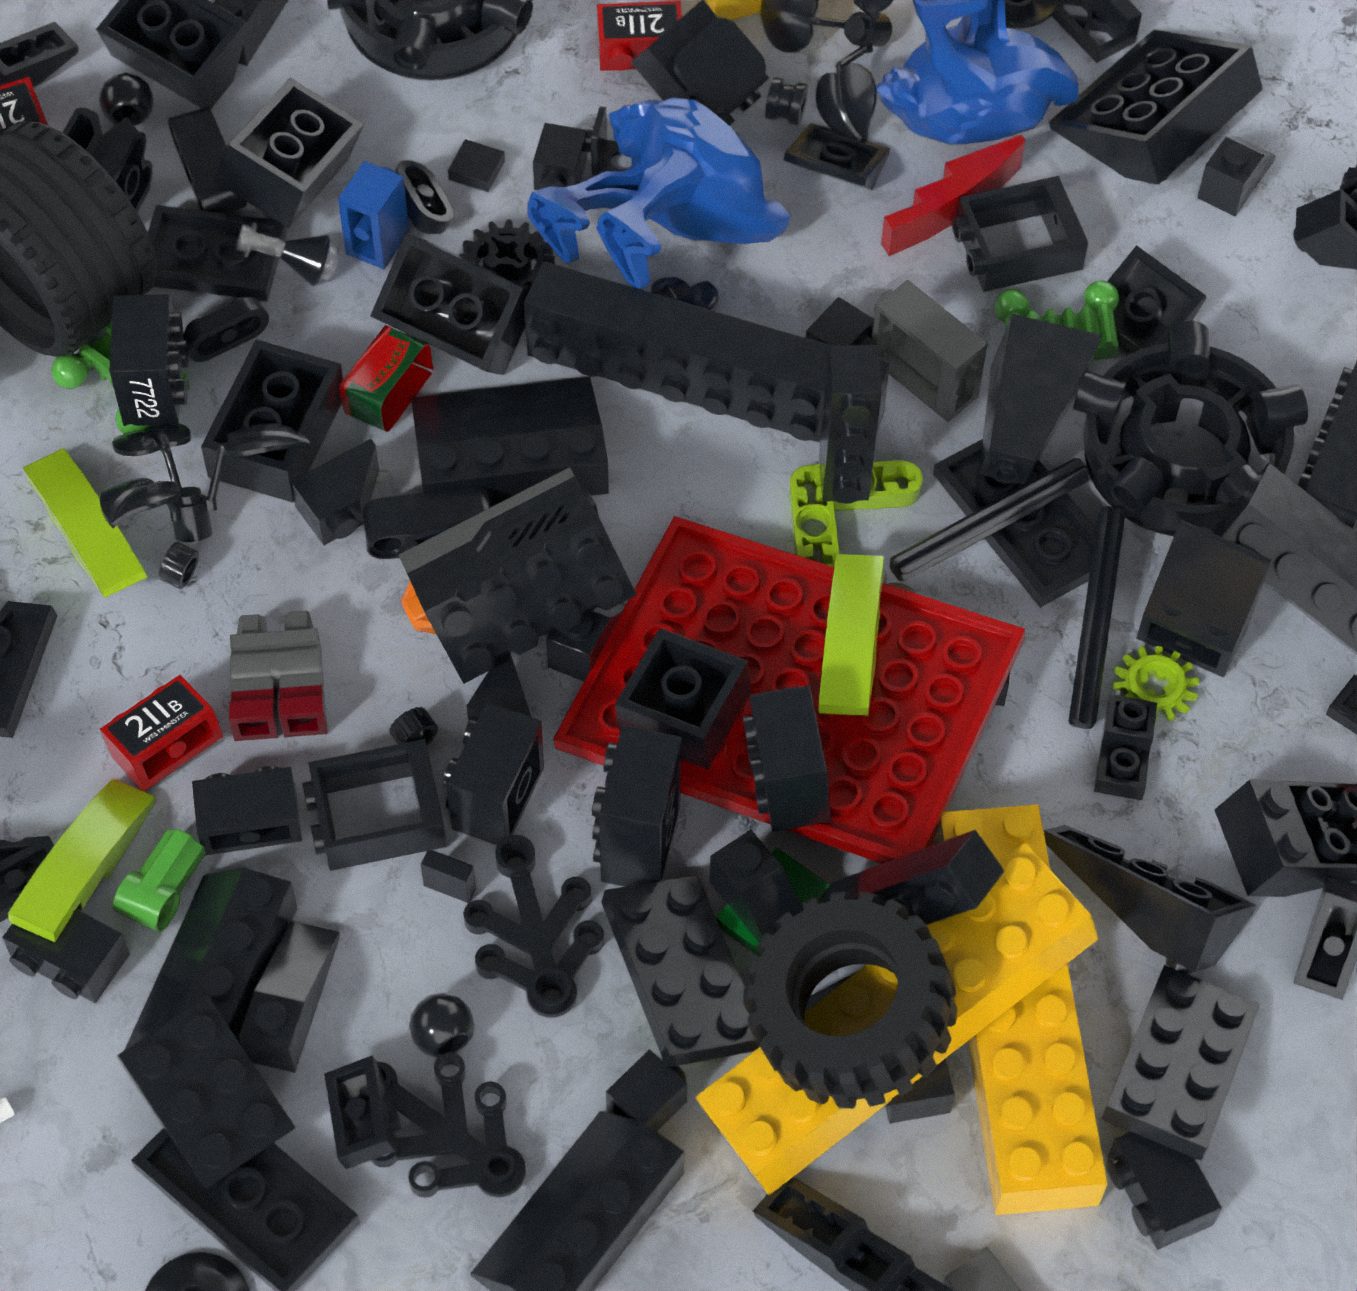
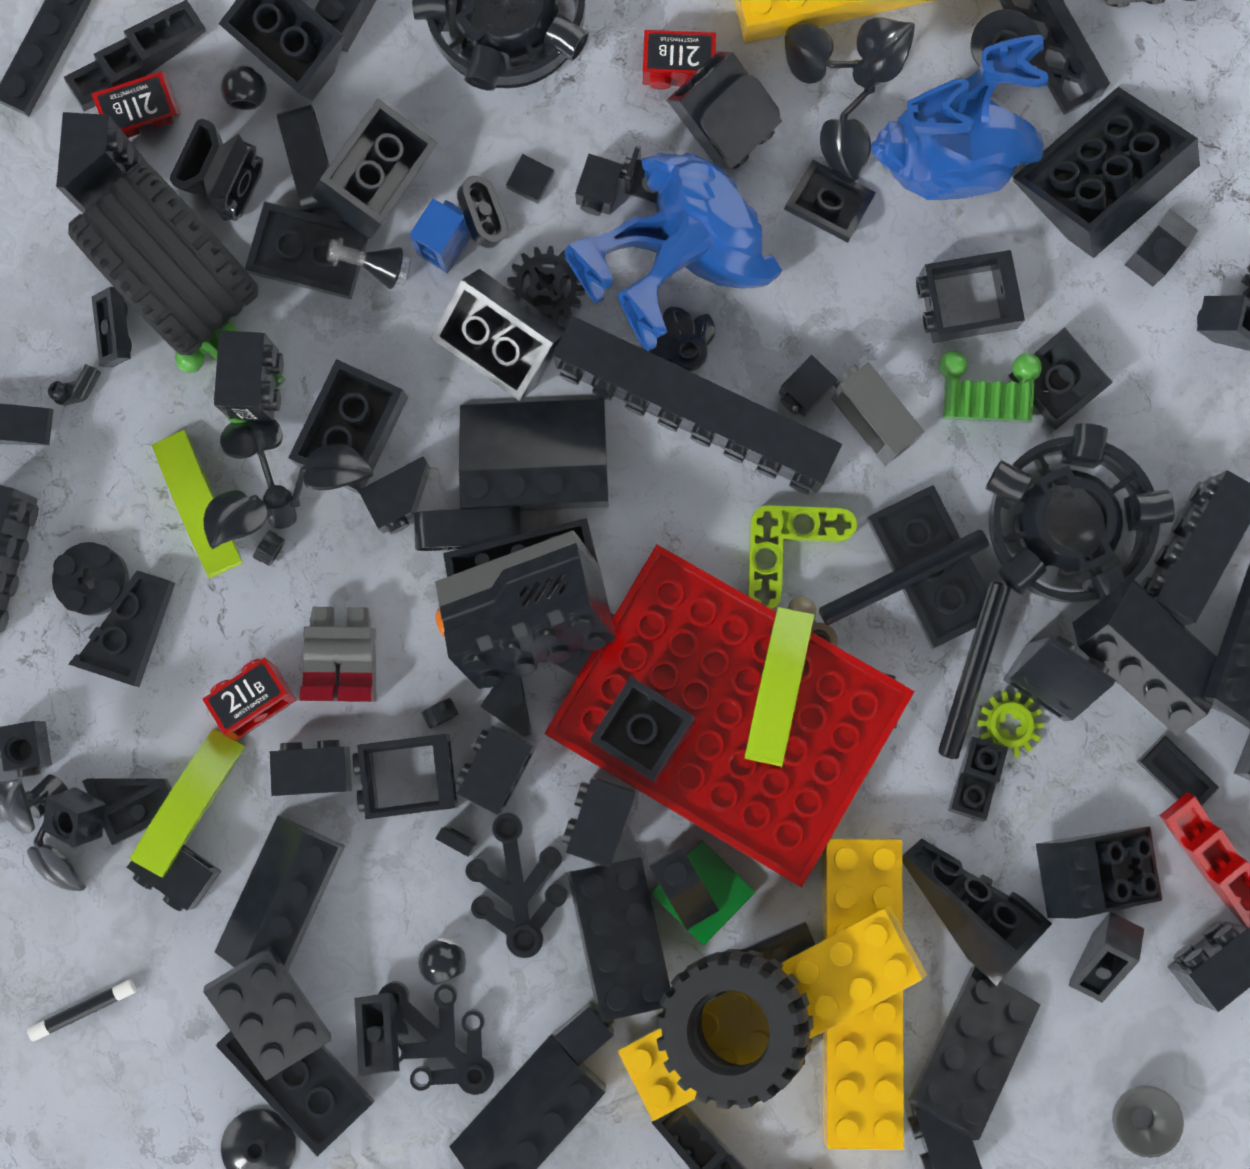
camera: 10 degrees right, 25 degrees up
(154, 892) = (239, 830): bright green piece -> none
(225, 328) = (302, 334): black plate -> none
(288, 997) = (334, 922): black slope -> none
(385, 378) = (440, 391): red piece -> none
(786, 101) = (794, 140): black wheel -> none
(787, 758) = (715, 800): black brick -> none
(849, 422) = (801, 510): black brick -> none
(931, 881) = (788, 929): black brick -> none
(938, 202) = (930, 243): red slope -> none
(1030, 392) = (951, 474): black slope -> none

